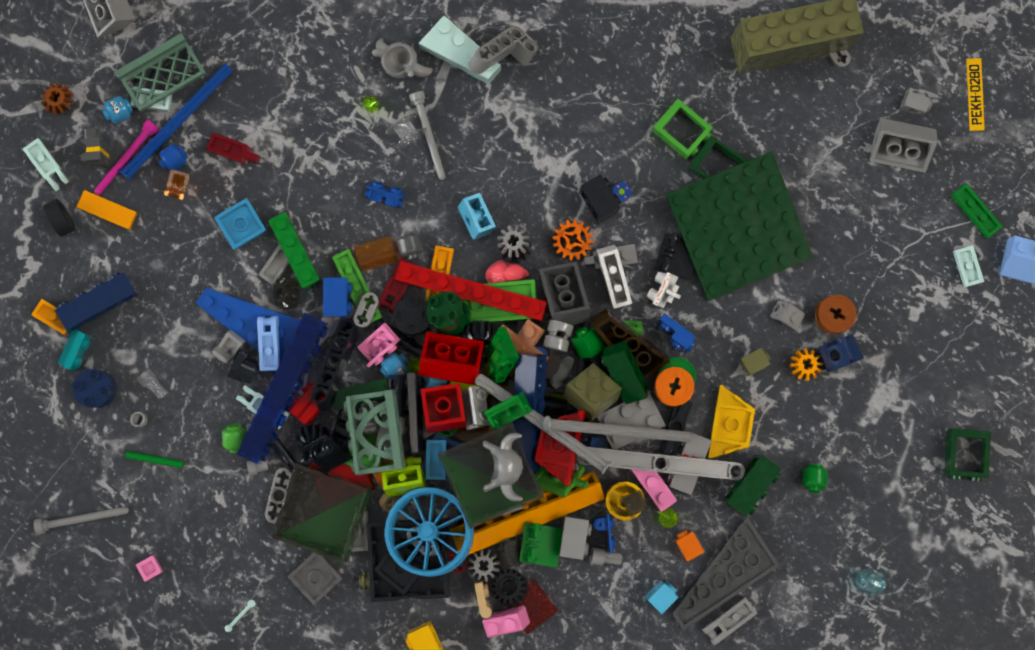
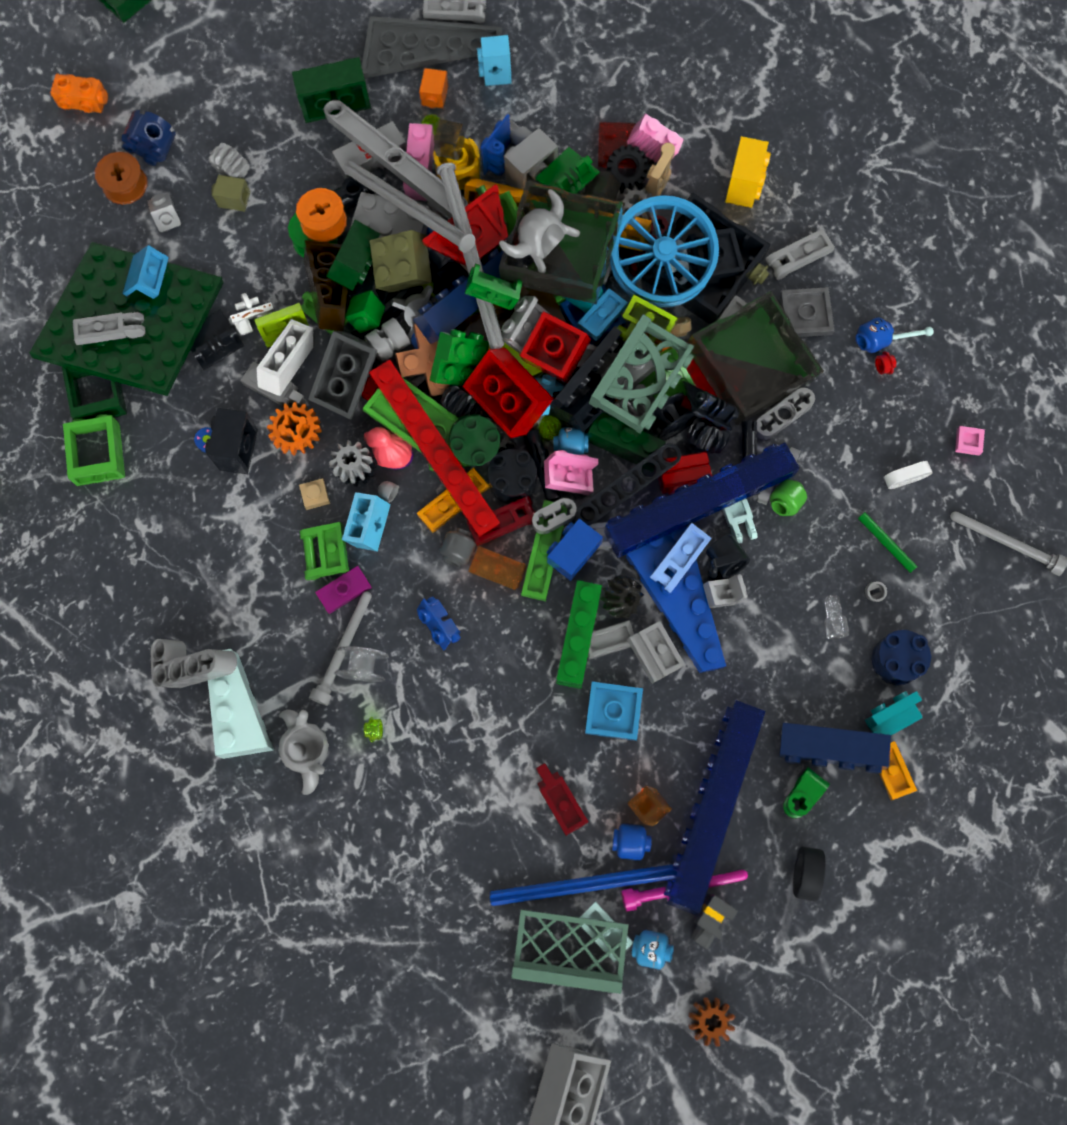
camera: 135 degrees left, 10 degrees down
(44, 162) = (779, 956): light aqua hinge -> none
(94, 266) = (808, 791): none -> green piece
(107, 210) = (750, 848): light orange tile -> none
(138, 213) = (715, 808): none -> clear blue brick
(171, 513) = (908, 475): none -> white beam
(239, 581) = (885, 363): none -> red plate
(242, 277) = (656, 652): none -> light grey plate
(259, 593) = (874, 335): none -> blue head
(350, 618) = (800, 253): none -> light grey plate
(458, 169) = (343, 590): none -> magenta plate
(483, 248) = (388, 491): none -> light grey hinge
(485, 185) = (331, 548): none -> bright green plate
(526, 211) = (314, 494): none -> tan plate
(640, 294) = (273, 324): none -> lime plate
(680, 337) = (277, 263): blue plate -> none
(731, 424) = (301, 159): yellow wing -> none
(738, 202) = (108, 327): none -> light grey hinge
(752, 260) = (146, 272): none -> dark azure panel
(772, 379) = (228, 161): none -> light grey gear
(812, 362) = (188, 156): light orange gear -> none
(815, 478) = (272, 60): green head -> none
(916, 353) = (79, 93): none -> orange brick

